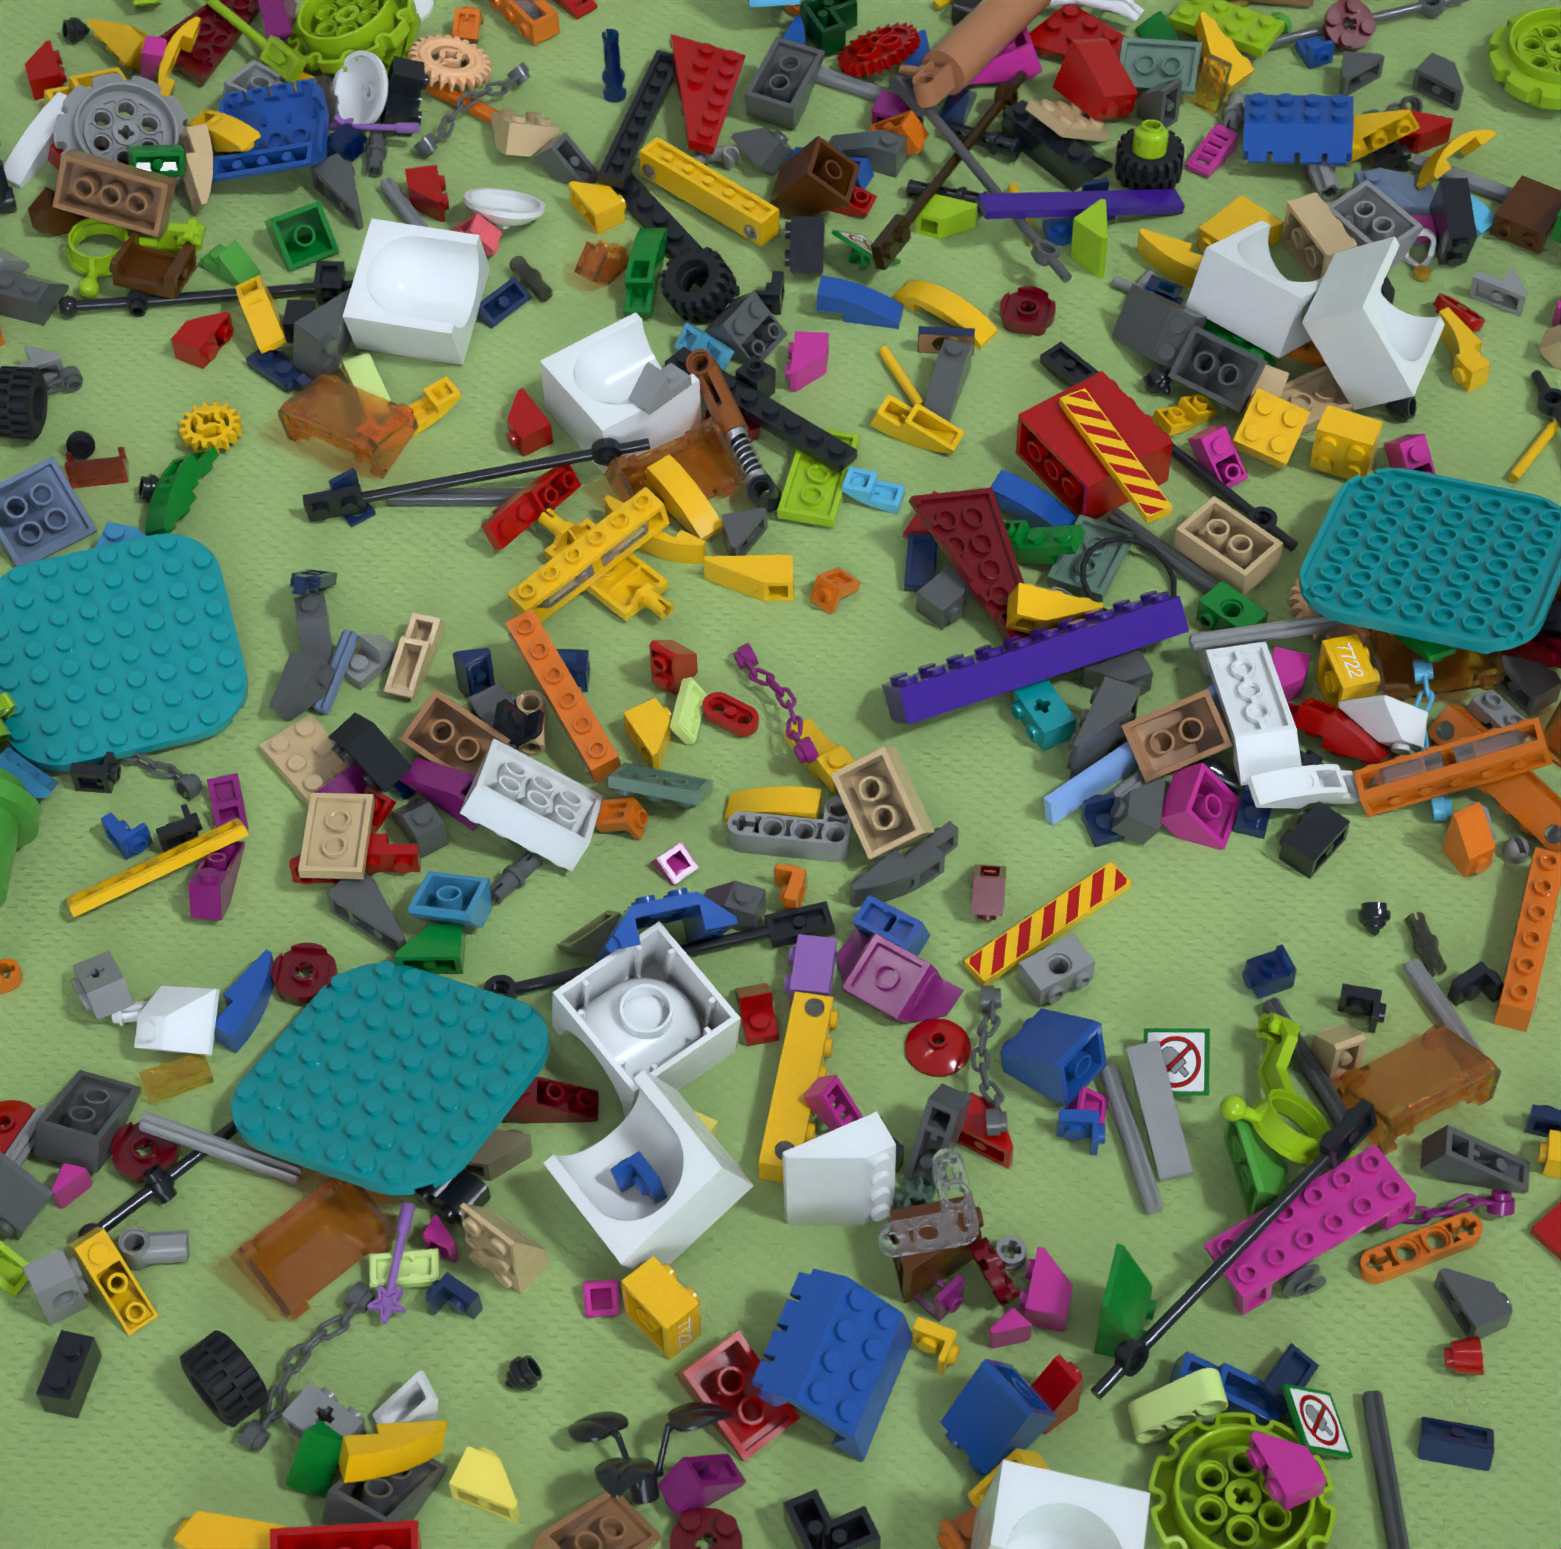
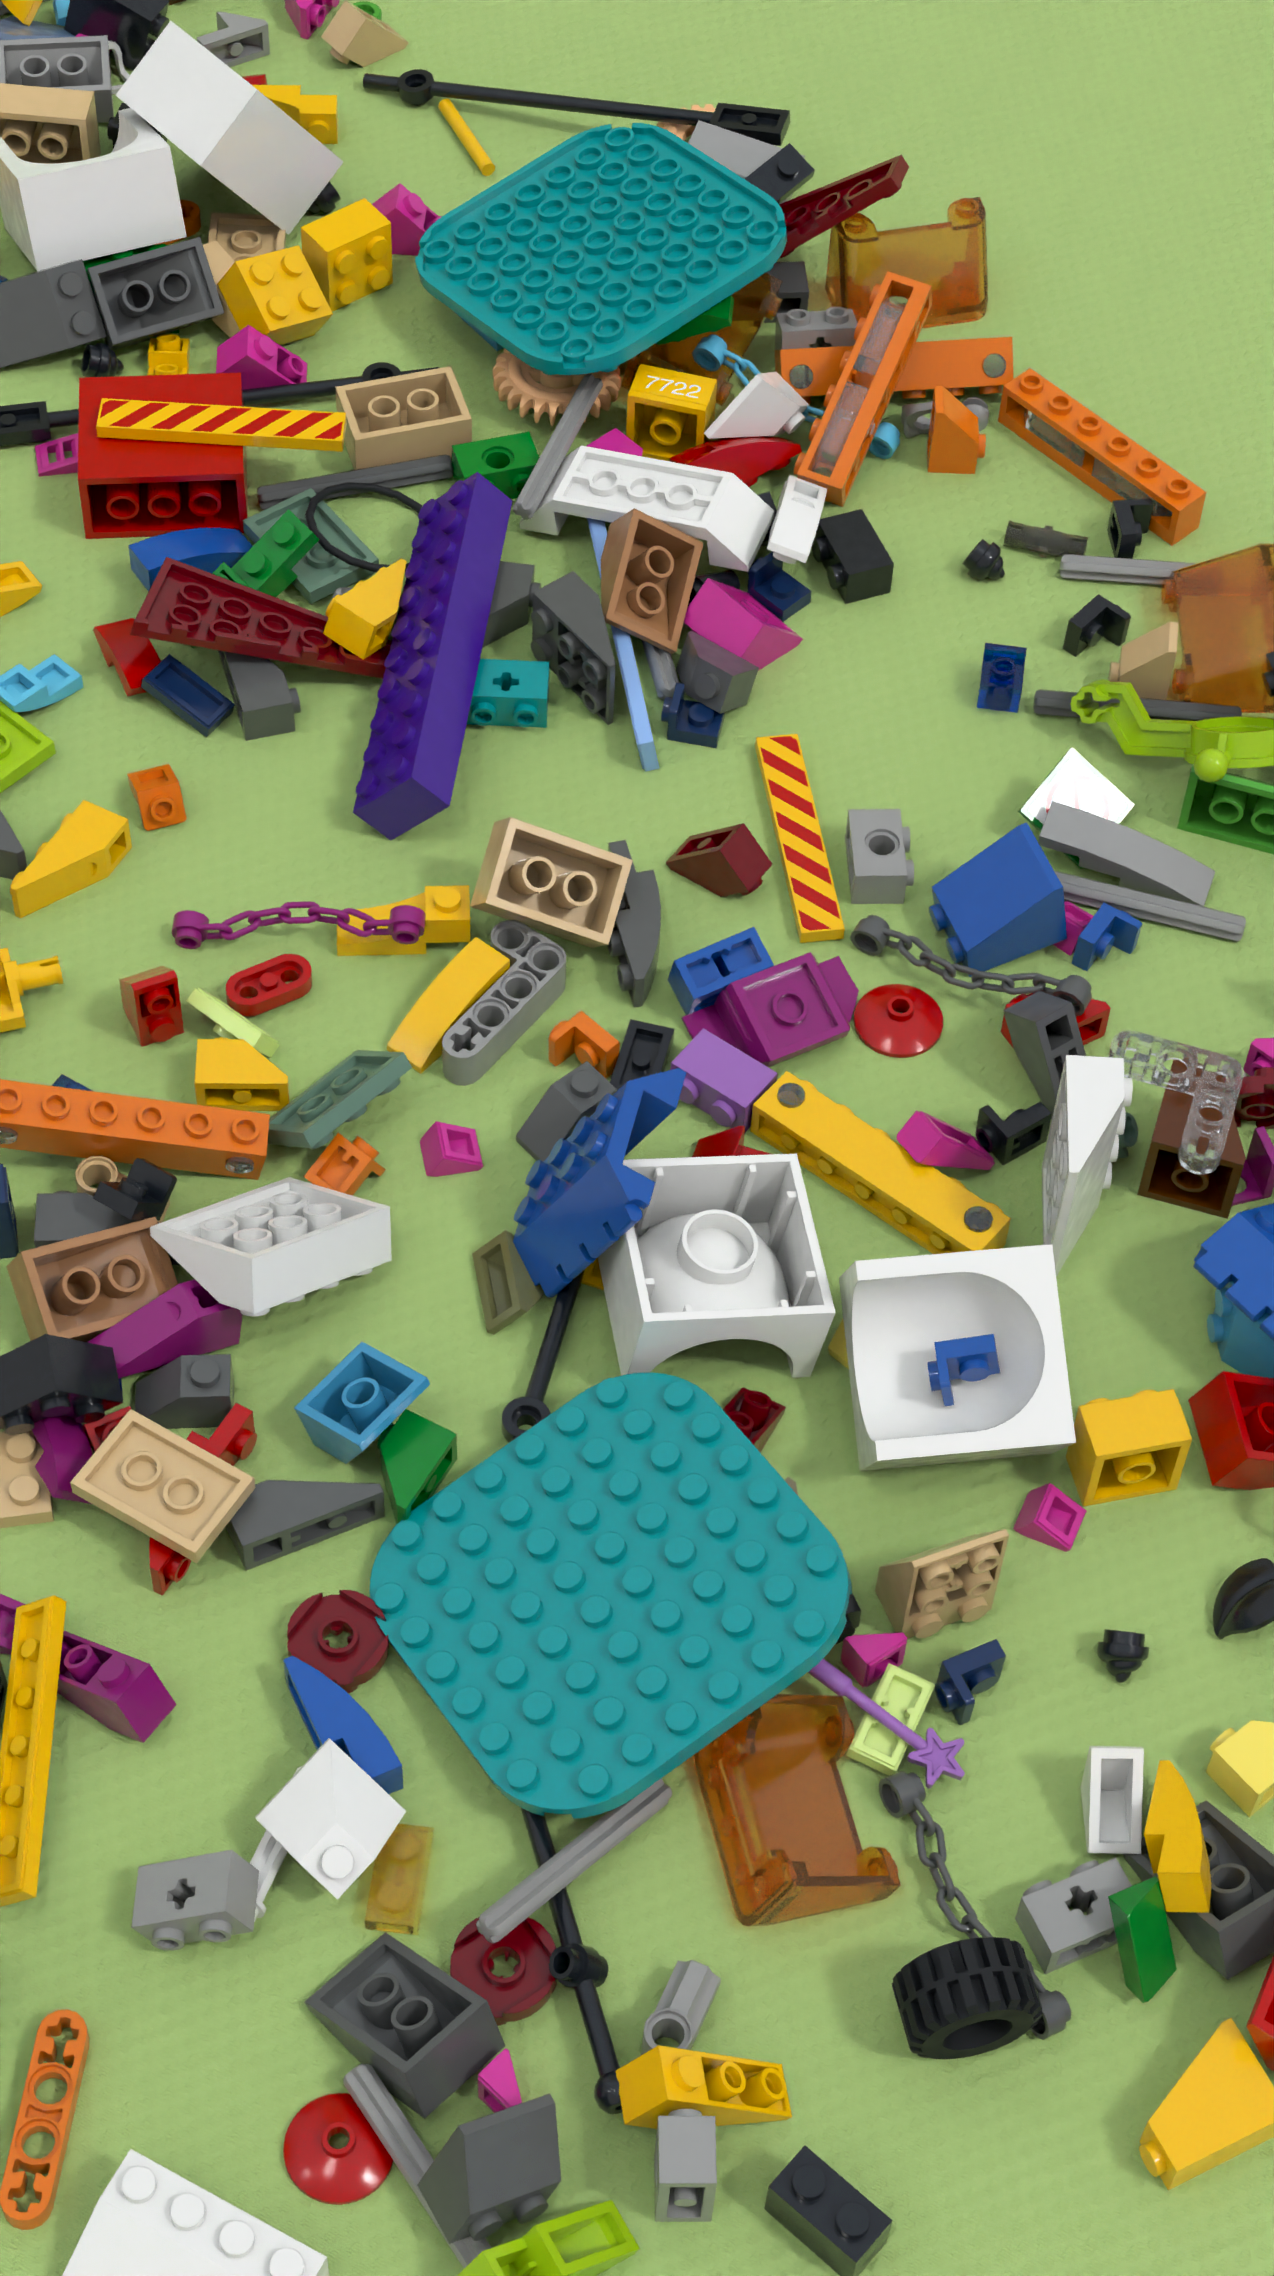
camera: 65 degrees left, 0 degrees up
(514, 876) = (350, 1324): dark grey pin -> none

